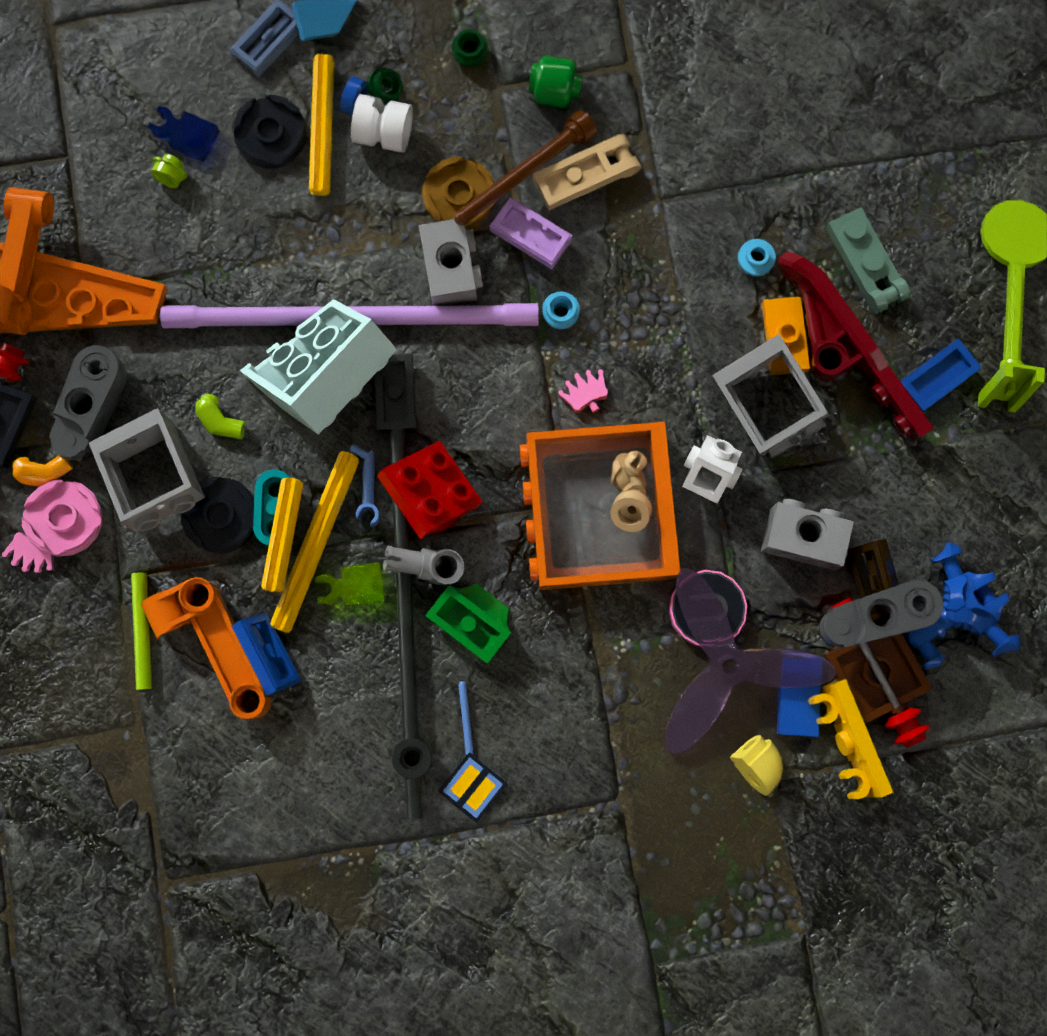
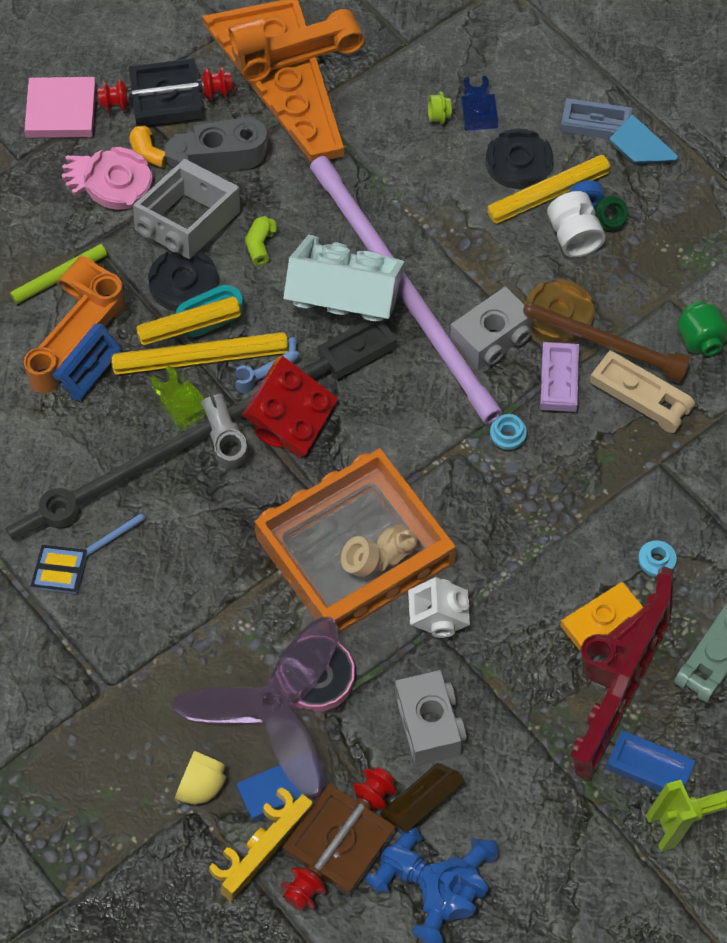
camera: 65 degrees right, 20 degrees down
(466, 39) = (691, 249): dark green plate -> none
(472, 619) = (199, 493): green slope -> none
(586, 393) = (450, 488): bright pink piece -> none
(752, 363) = (549, 591): light grey window -> none
(852, 621) = (360, 770): dark grey piece -> none

